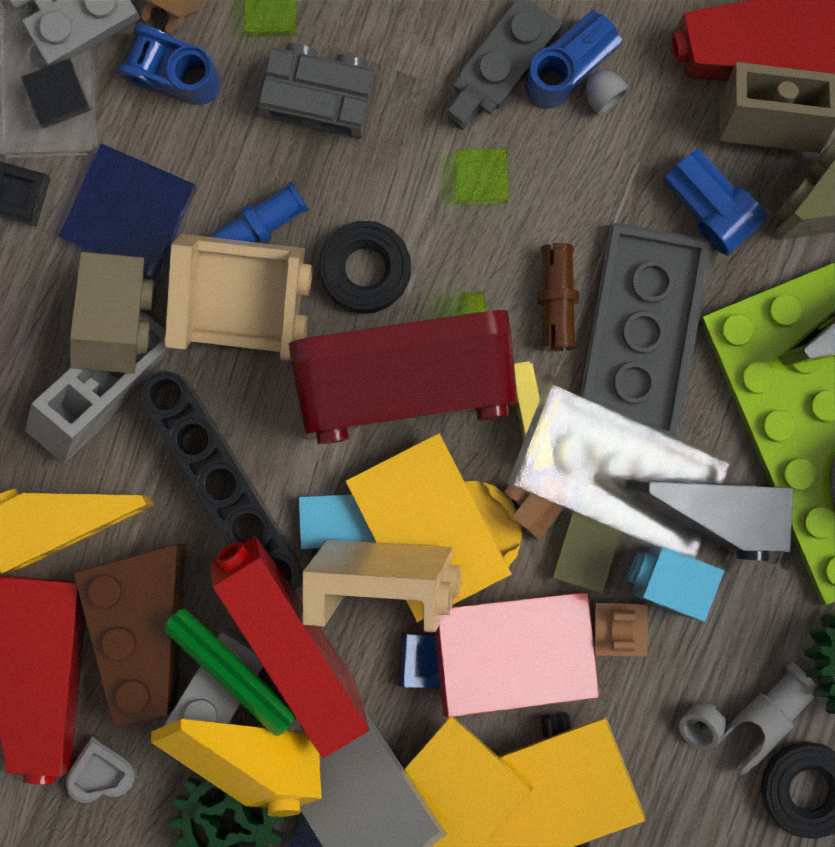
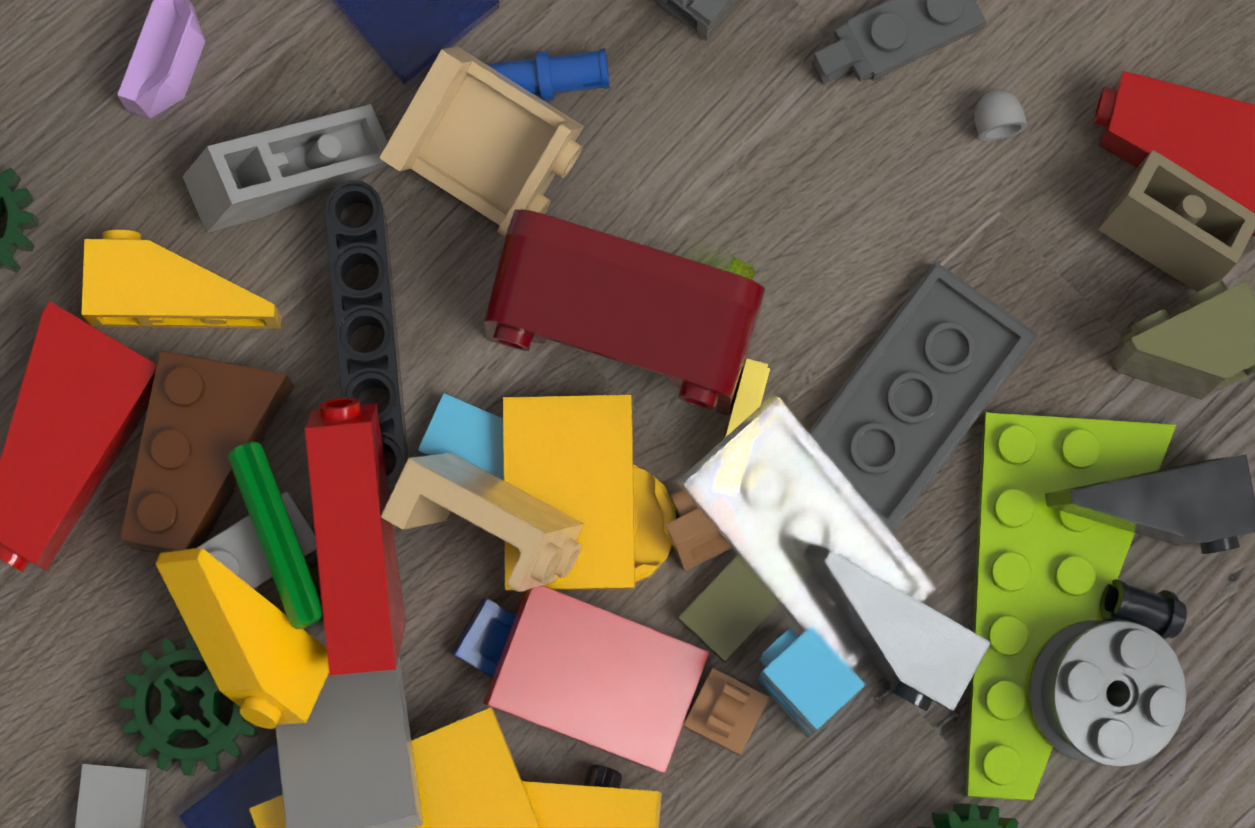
camera: 20 degrees right, 5 degrees down
(100, 771) = (77, 587): light grey tile -> none
(108, 313) = (336, 92): dark tan brick -> none
(354, 237) = (643, 142): black tyre -> none
(481, 176) = (817, 143): clear neon green tile -> none
(558, 297) = (836, 314): reddish brown pin -> none
(572, 58) = (980, 61): blue piece -> none
(722, 211) = (1063, 307): blue piece -> none

